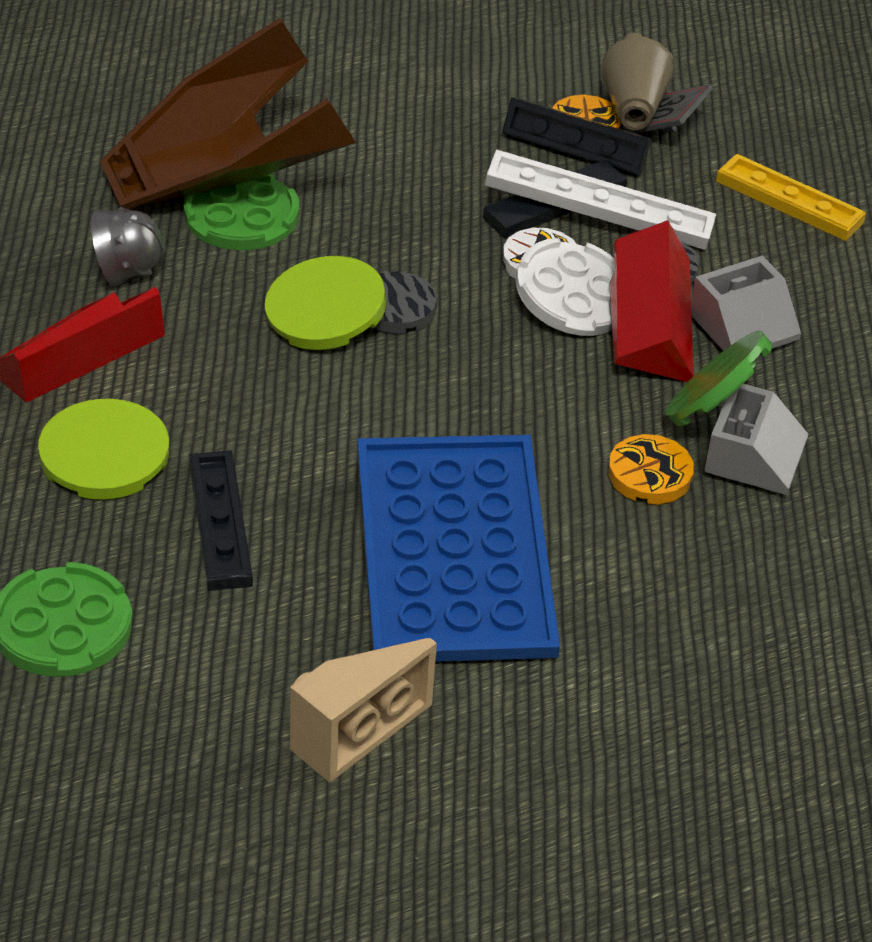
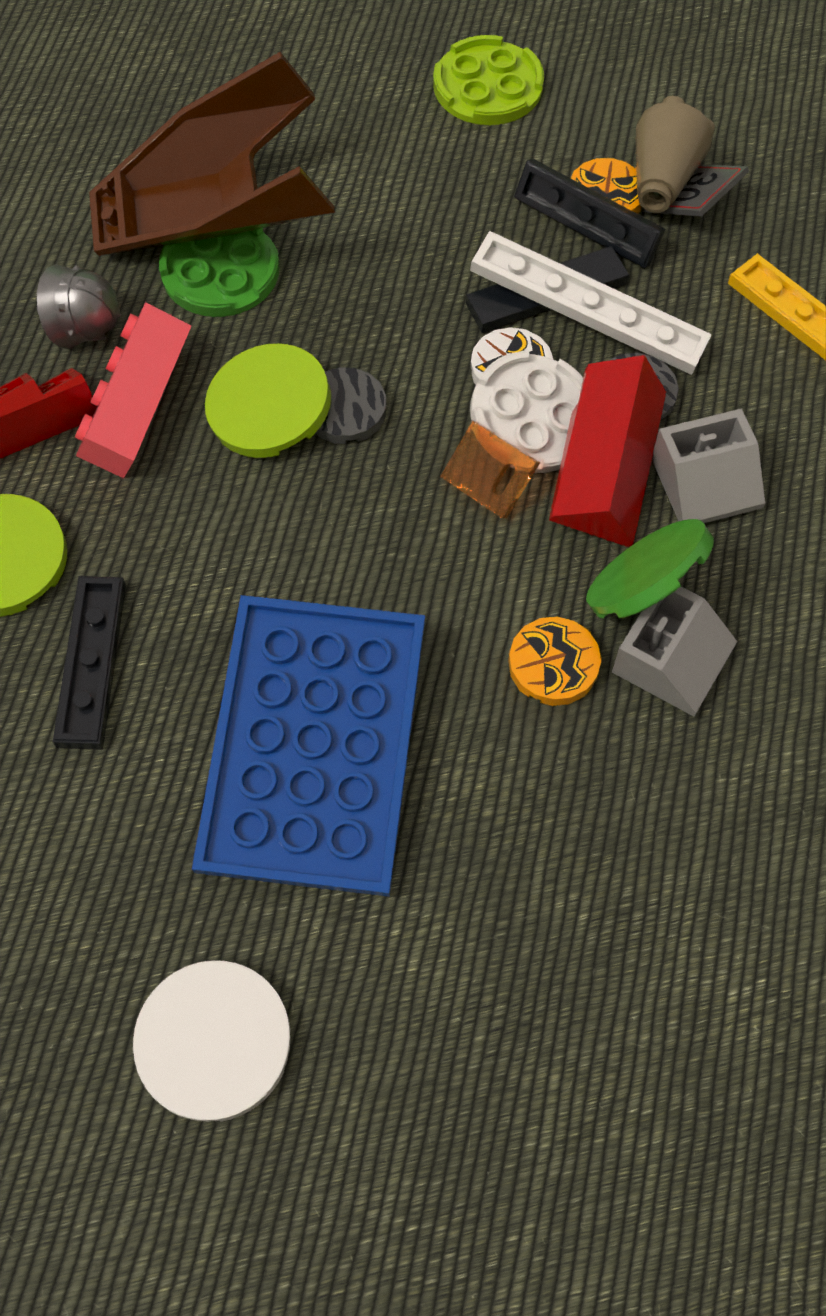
camera: 15 degrees right, 20 degrees up
(198, 305) = (133, 391): none -> coral brick
(358, 703) = (136, 949): tan slope -> none
(431, 781) = (212, 1041): none -> white tile
(449, 47) = (488, 80): none -> lime tile
(541, 326) = (481, 464): none -> clear orange piece

